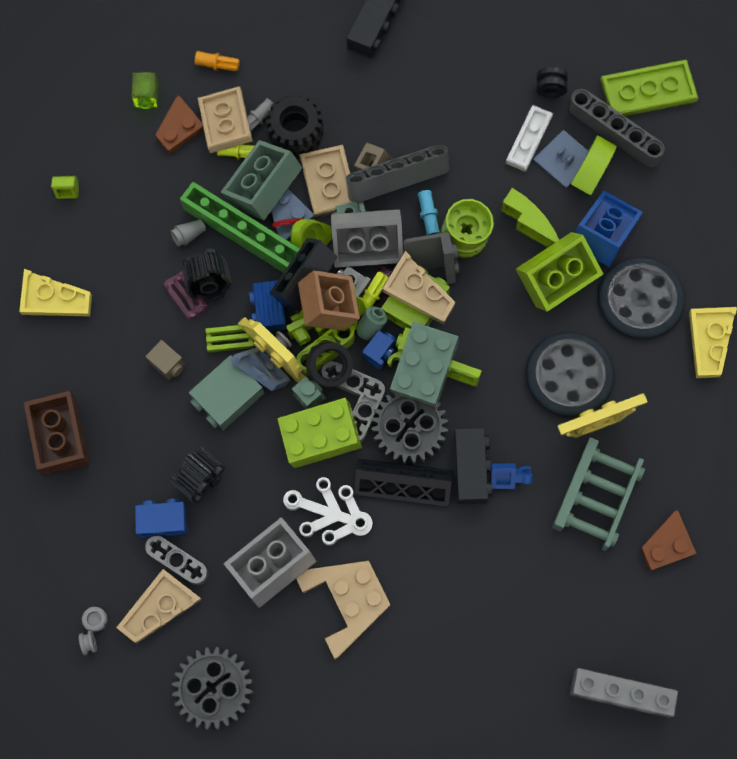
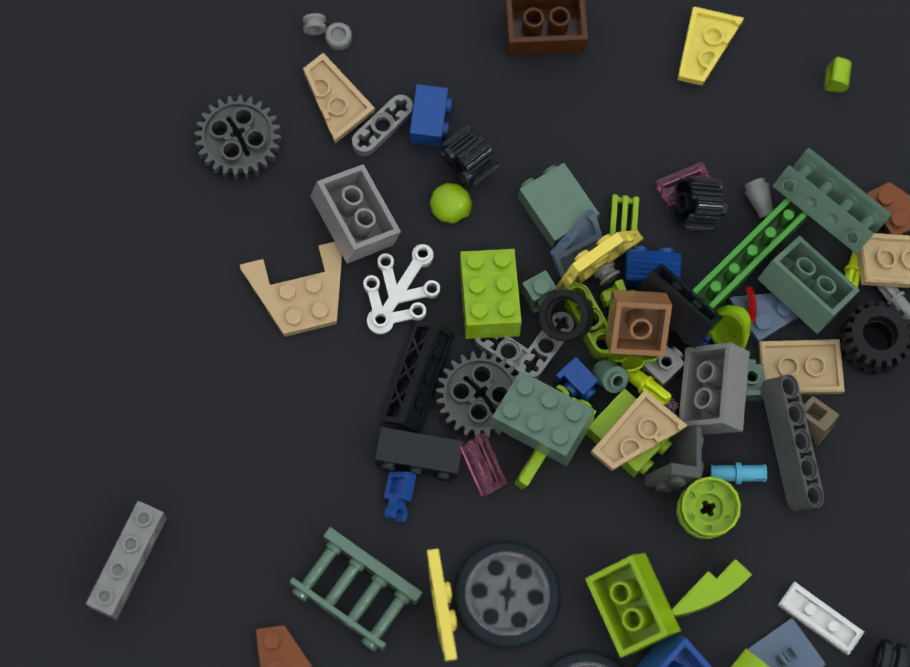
camera: 90 degrees right, 0 degrees up
(165, 360) = (608, 148): dark tan brick -> none
(175, 164) = (832, 200): none -> sand green fence
(240, 485) = (450, 203): none -> lime hair
(473, 412) = (479, 467): none -> clear pink tile

